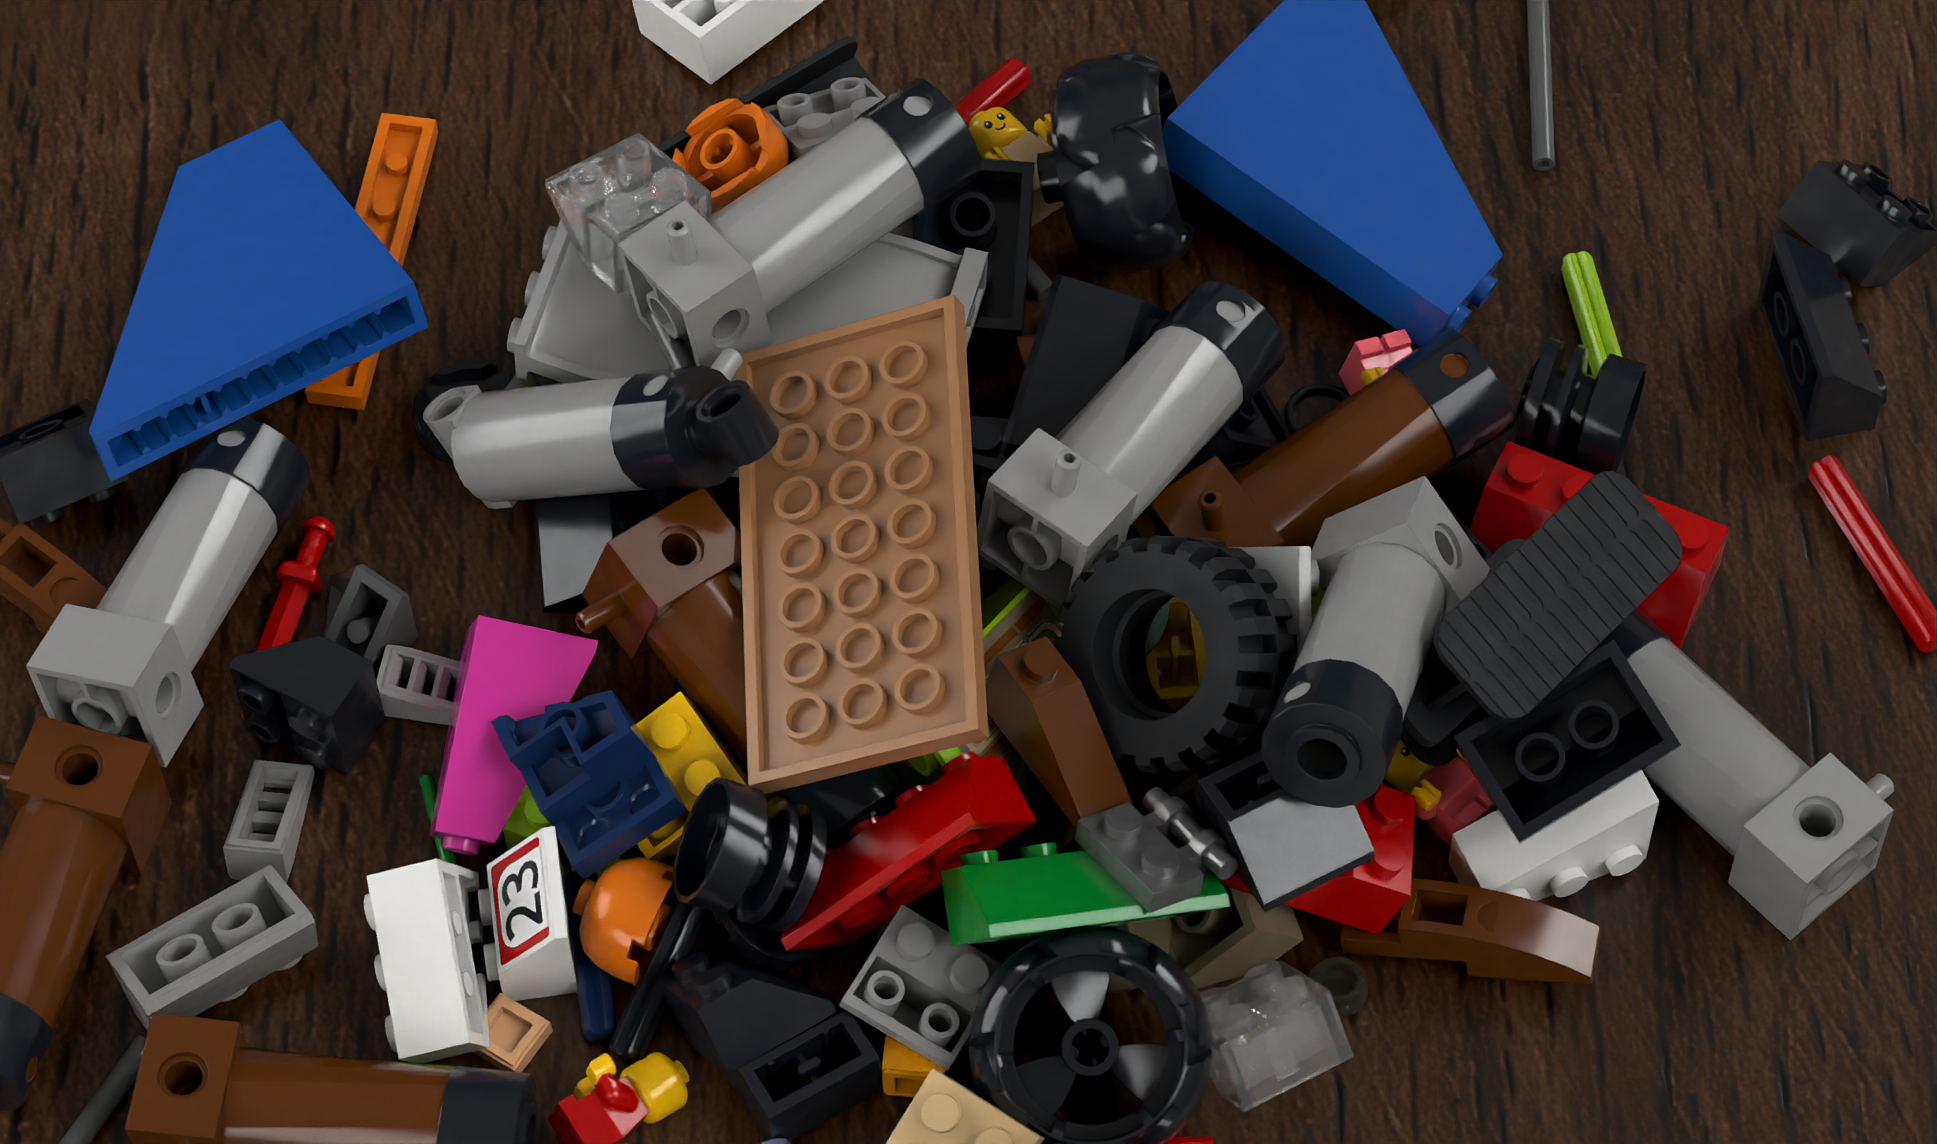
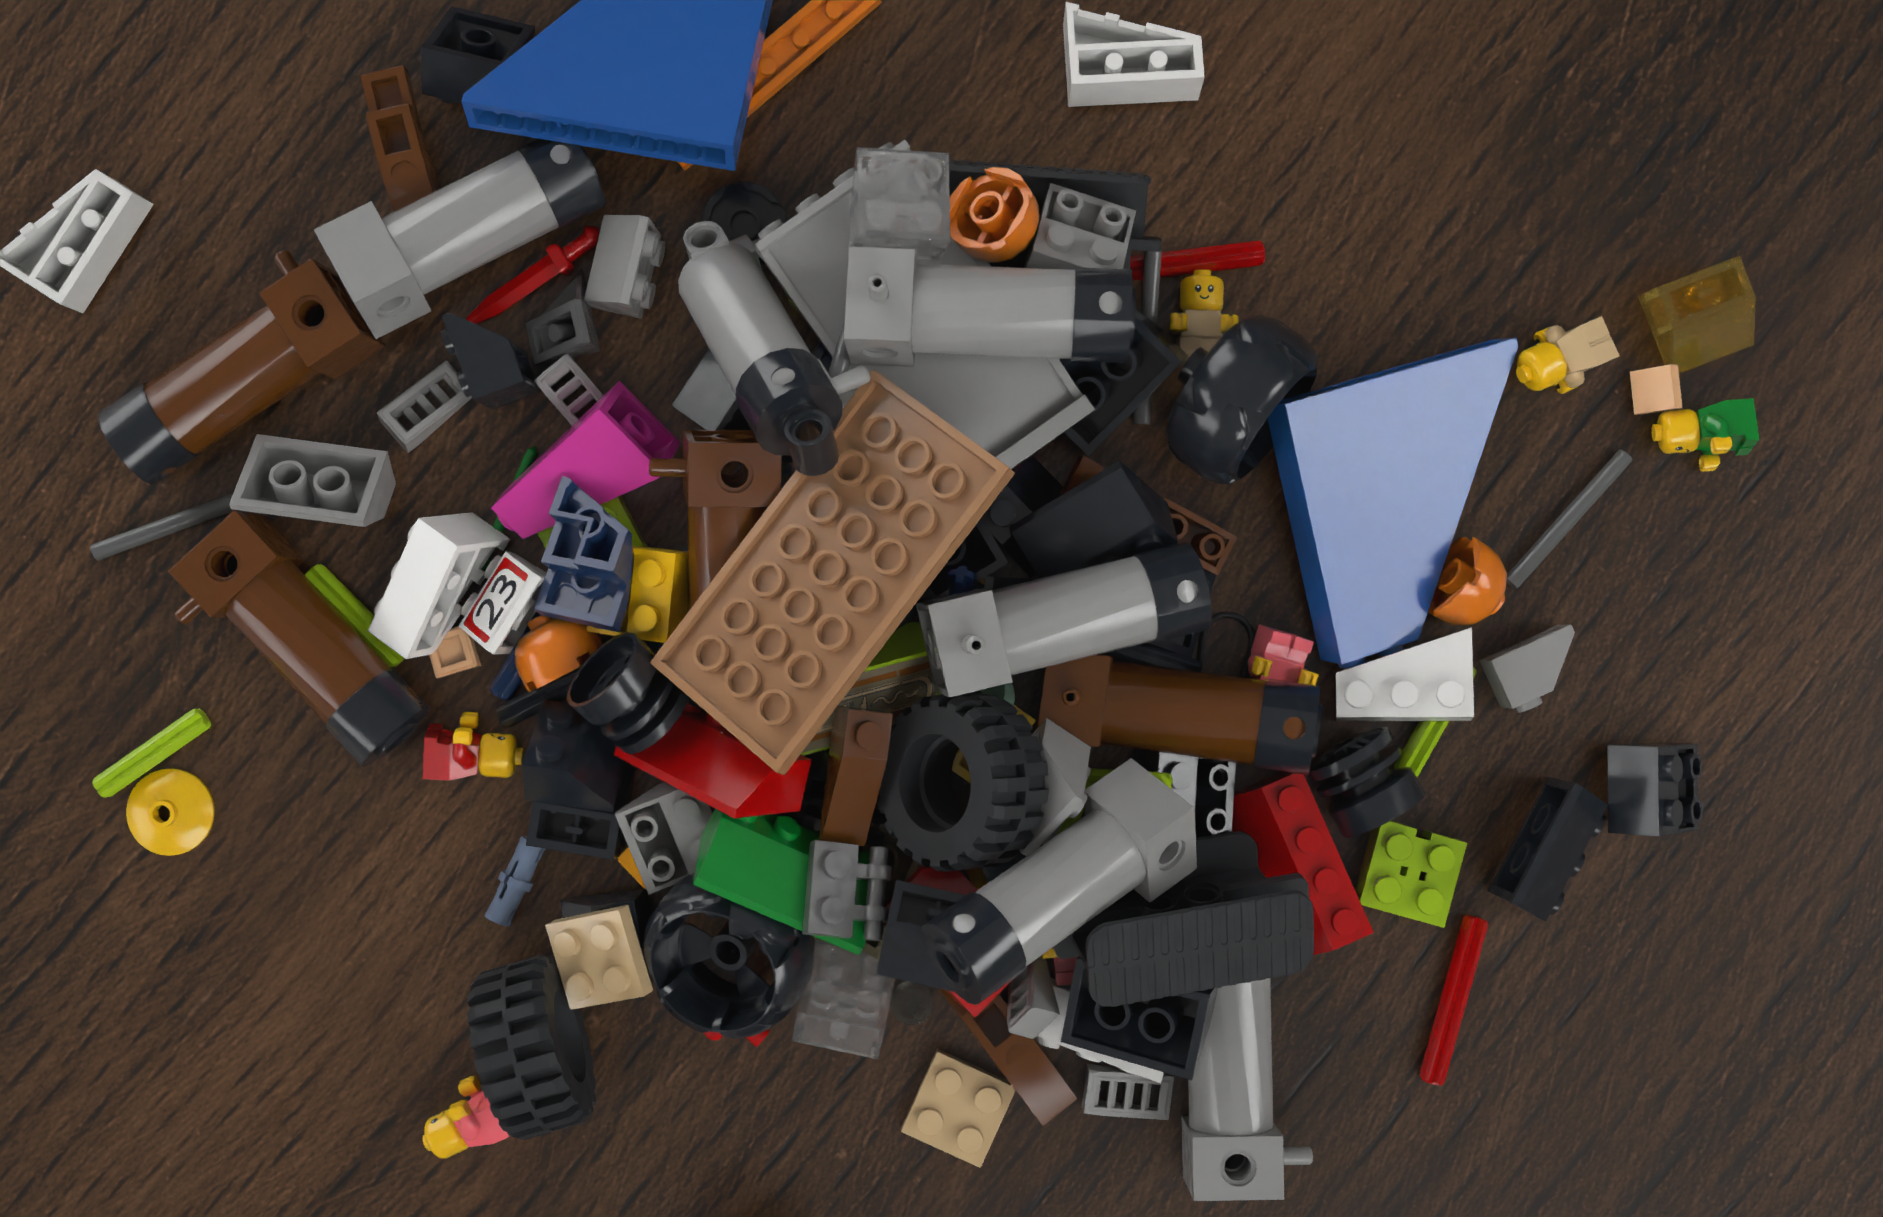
camera: 40 degrees right, 30 degrees up
(378, 514) = (624, 265): none -> light grey slope
(1453, 850) = (1031, 1000): none -> light grey slope
(1489, 1054) = (958, 1108): none -> tan plate
(1504, 177) = (1469, 584): none -> orange cylinder
(1544, 285) = (1411, 685): none -> white wedge
(1623, 932) = (1094, 1106): none -> light grey slope
(1633, 214) = (1528, 668): none -> light grey slope
(1722, 490) = (1397, 851): none -> lime piece

